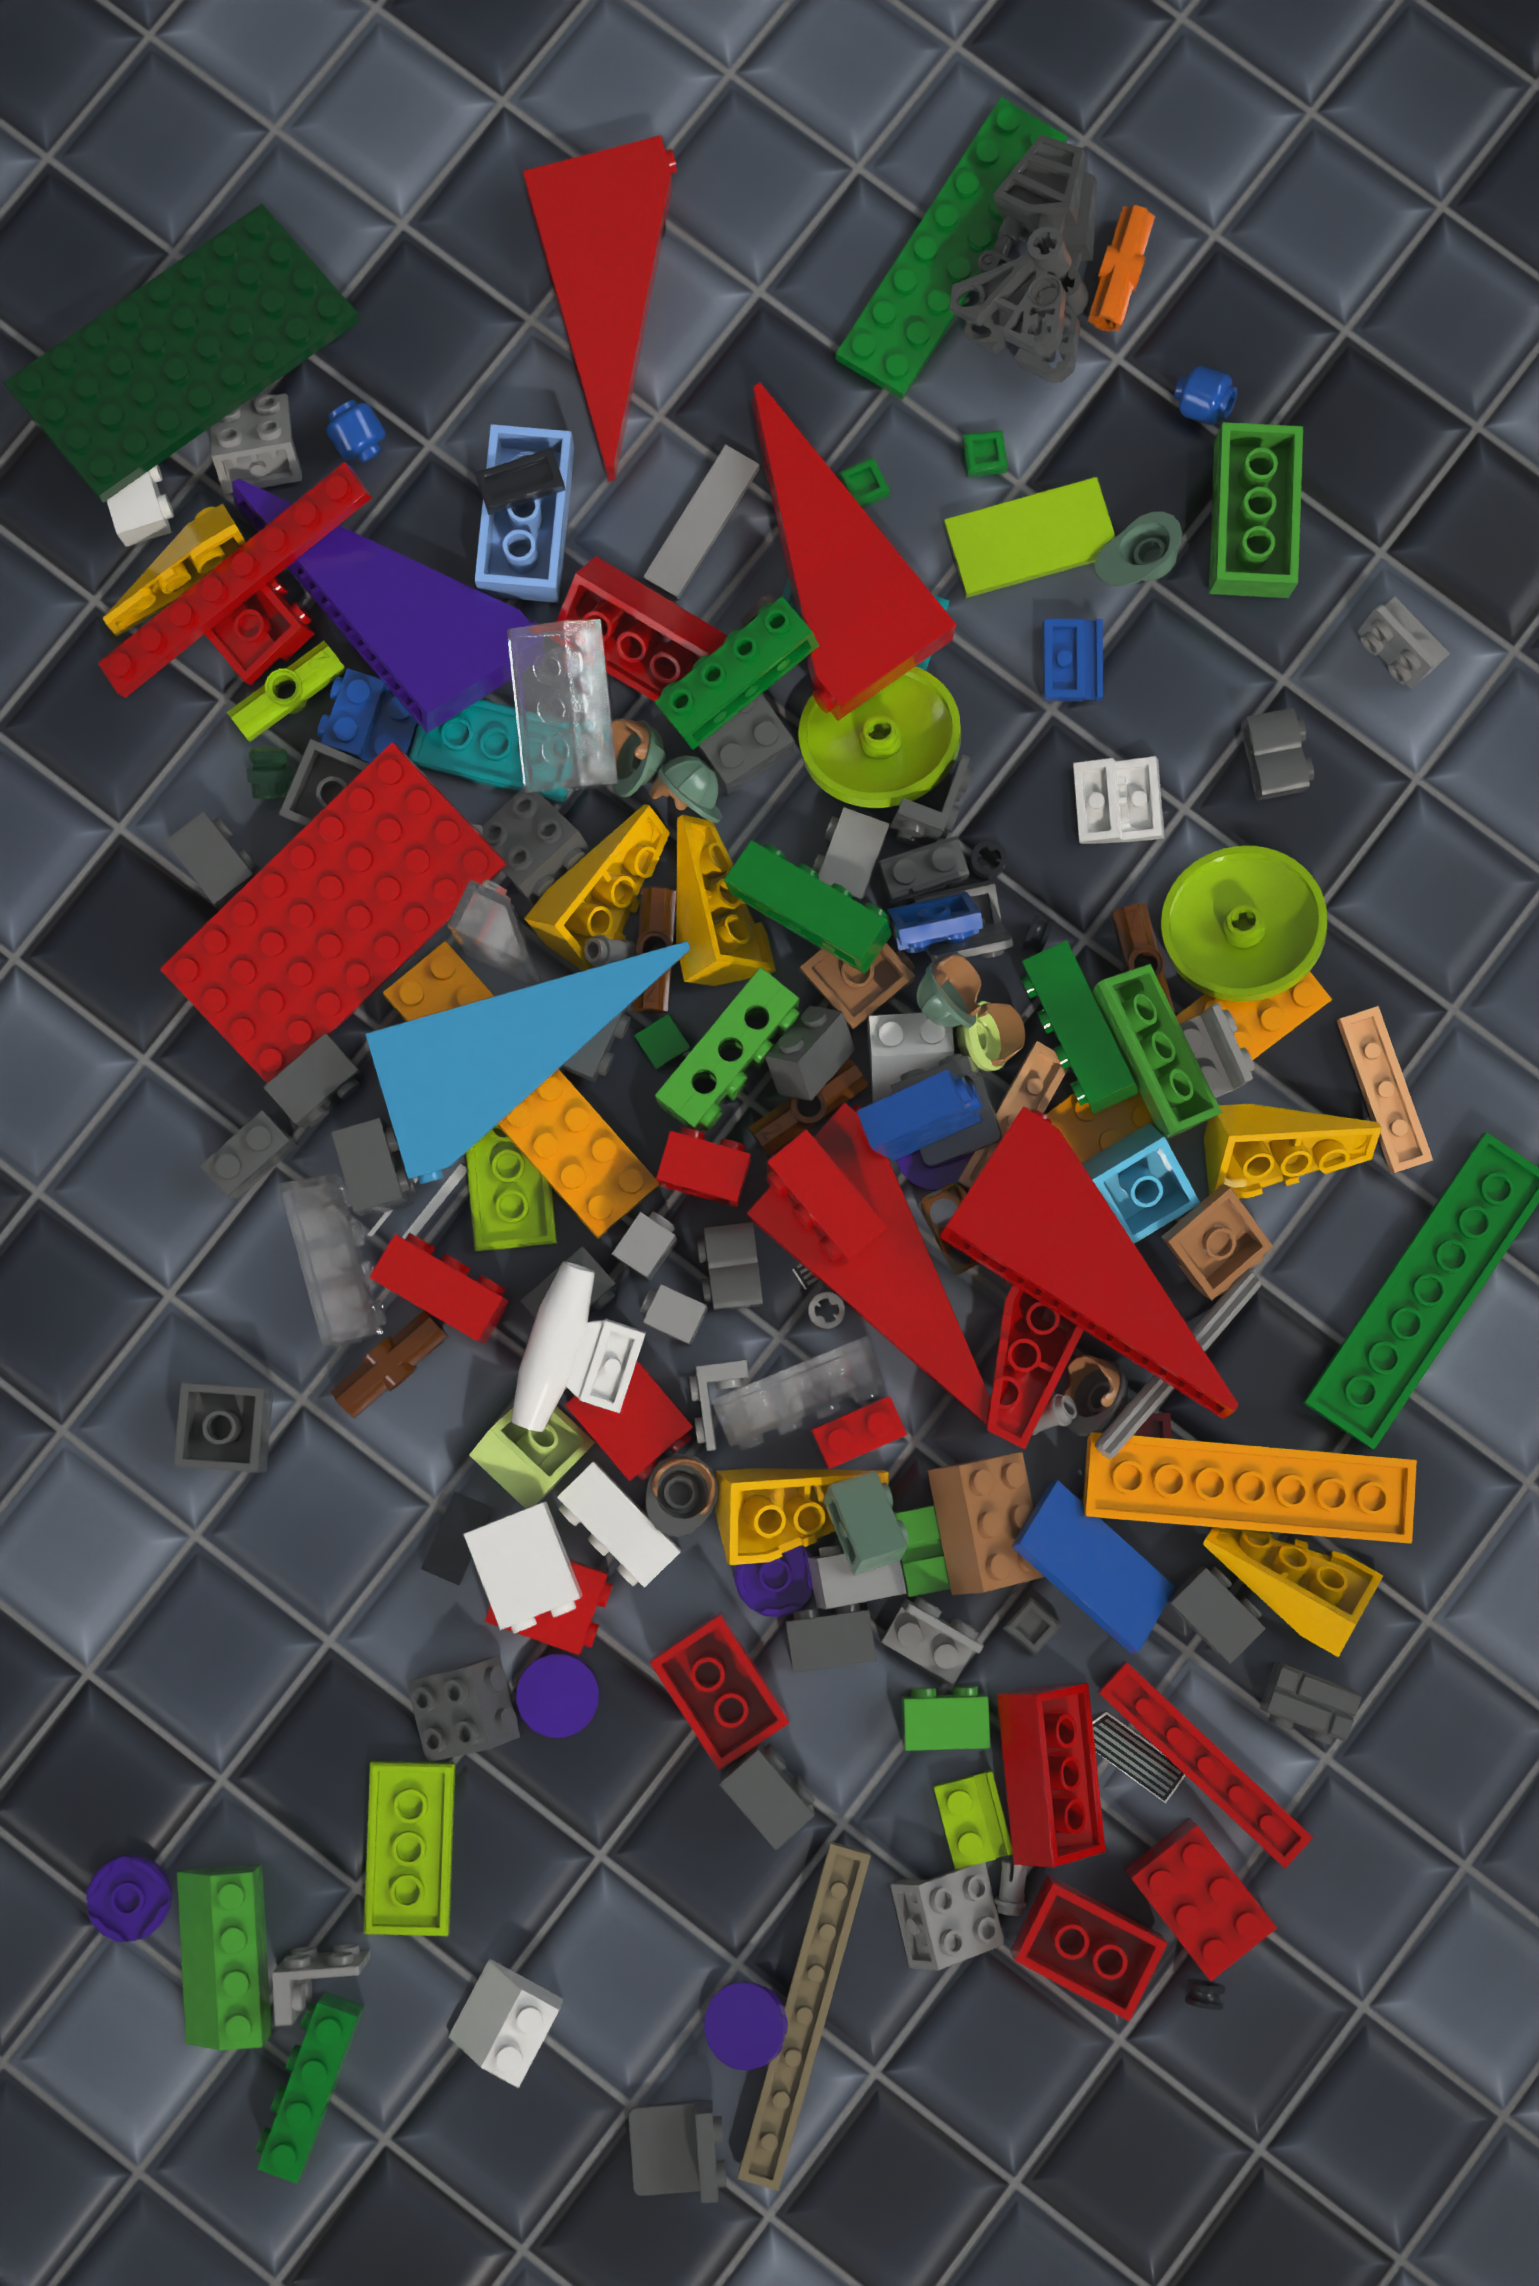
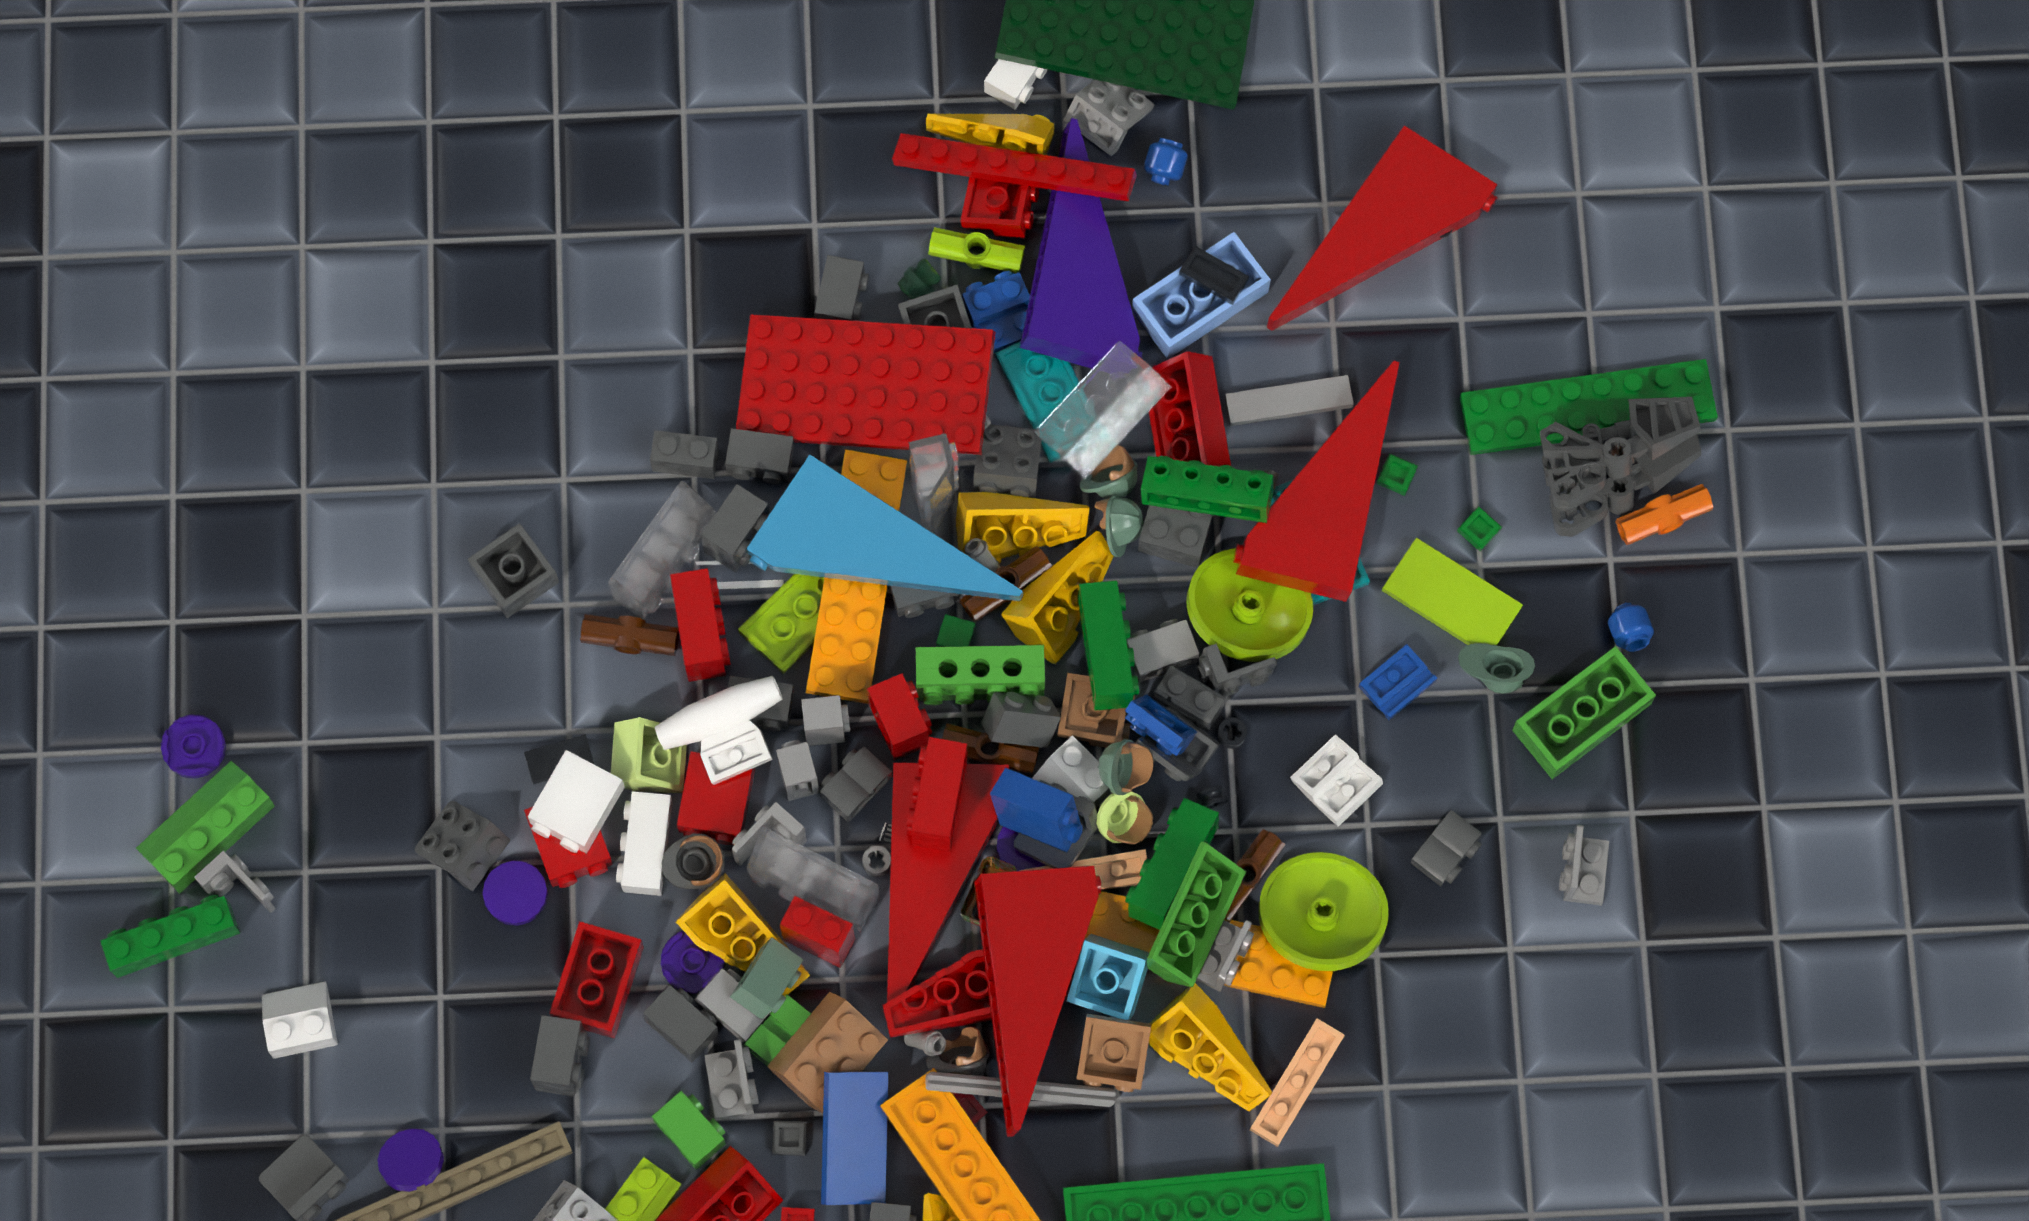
camera: 50 degrees right, 10 degrees down
(409, 1848) = (354, 882): lime tile -> none

